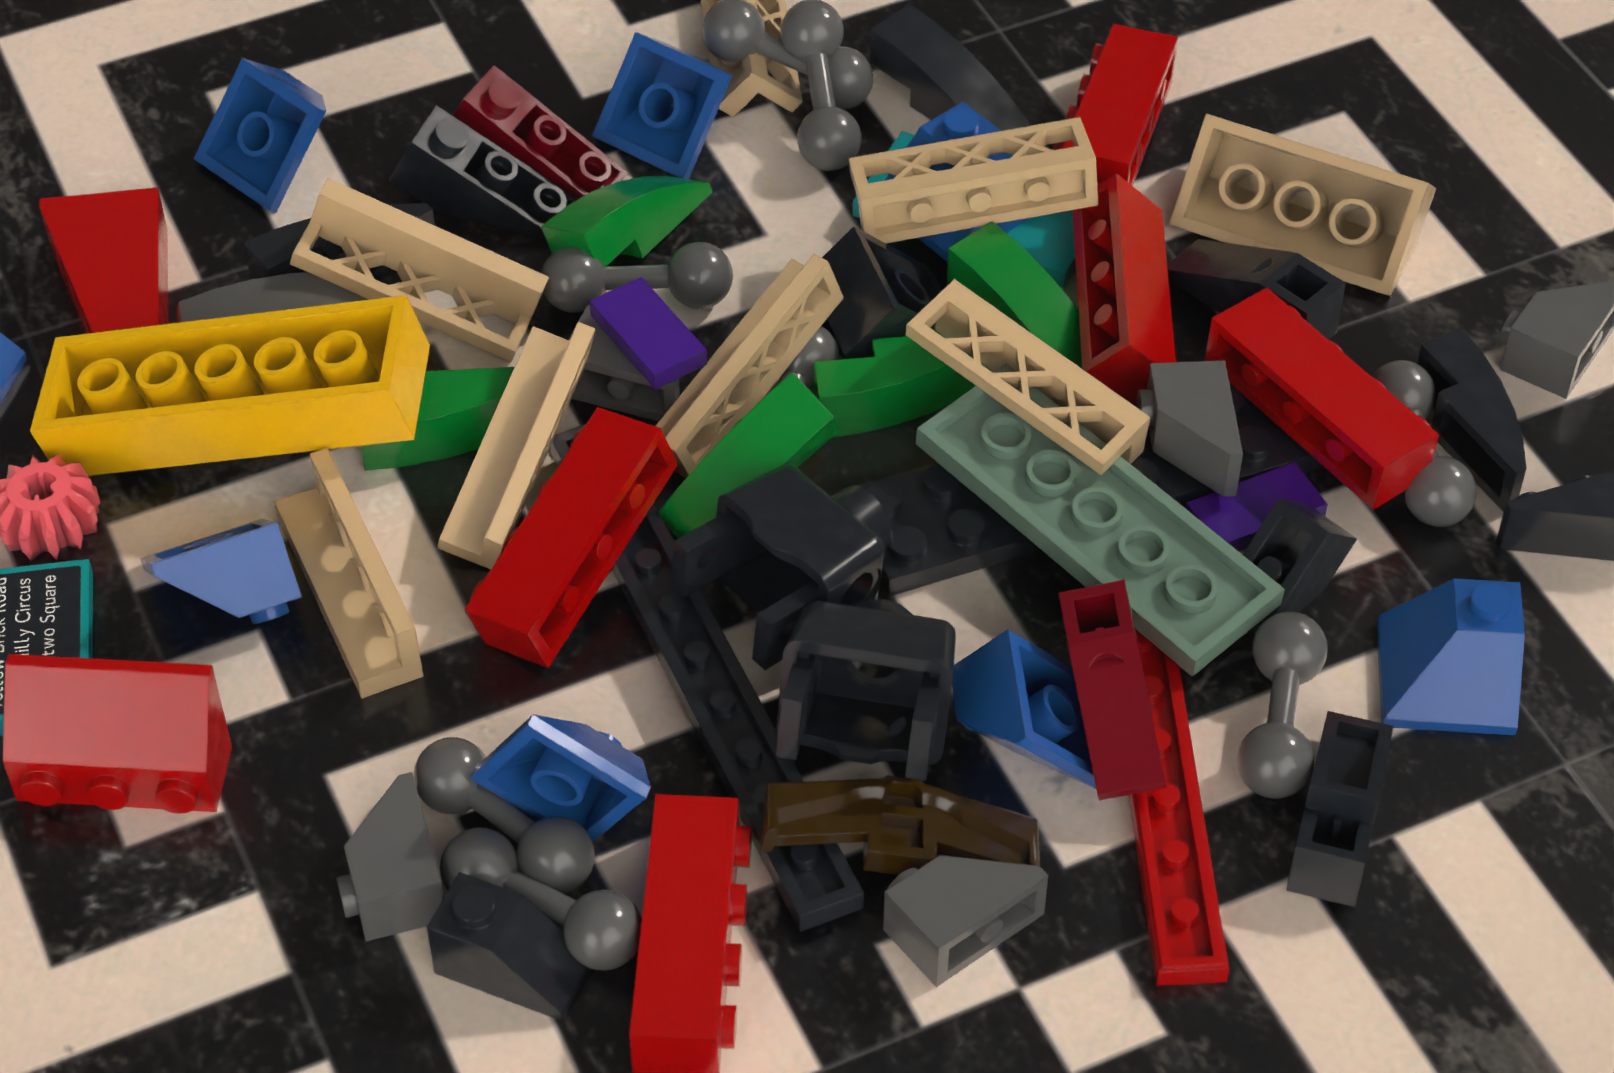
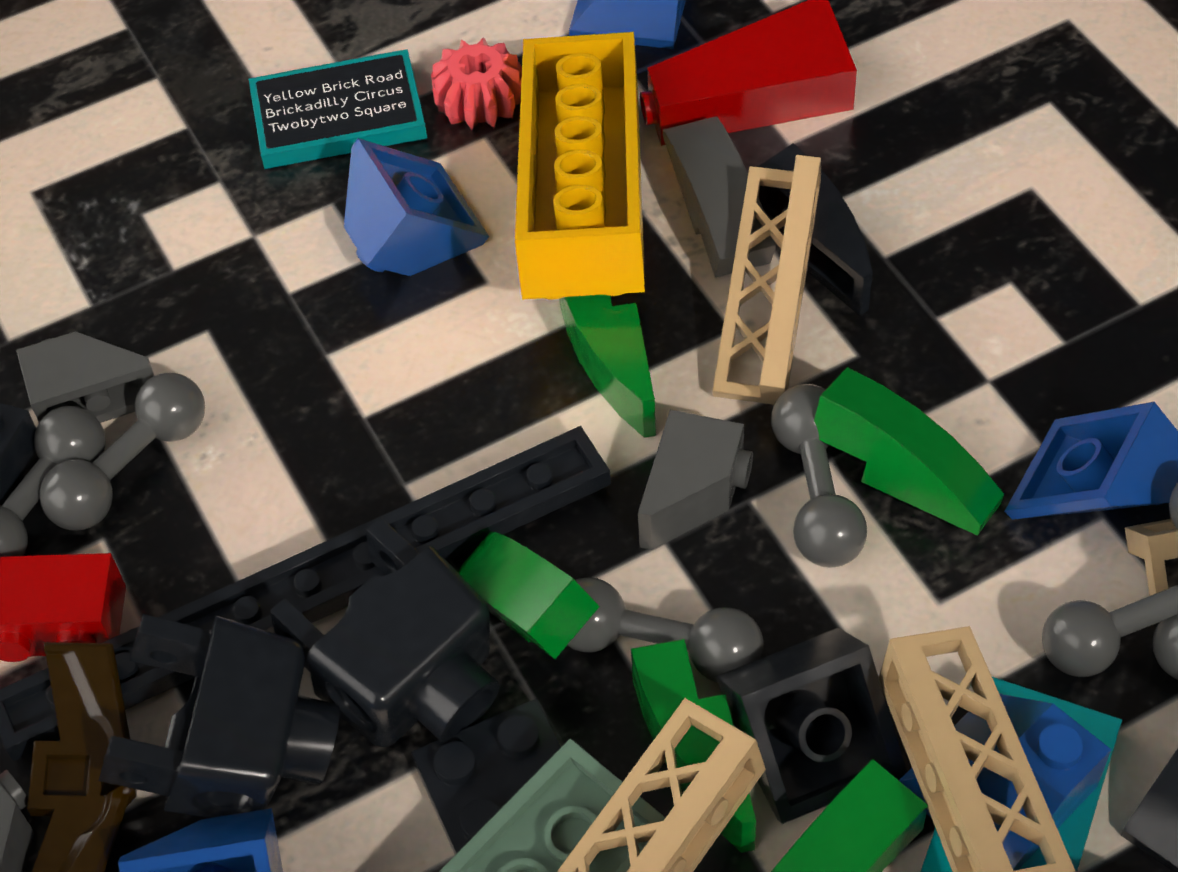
camera: 90 degrees right, 5 degrees up
(114, 733) = (209, 172): slope -> none
(261, 132) = (981, 142): blue slope -> none
(350, 581) = (406, 307): tan fence -> none
(476, 179) = (942, 324): black slope -> none
(515, 445) = (548, 393): tan fence -> none
(536, 135) = (1008, 361): dark red slope -> none
(565, 772) = (129, 477): blue slope -> none
(571, 537) = (430, 451): red brick -> none
(648, 332) = (695, 475): dark purple tile -> none
(750, 360) = (672, 575): tan fence -> none

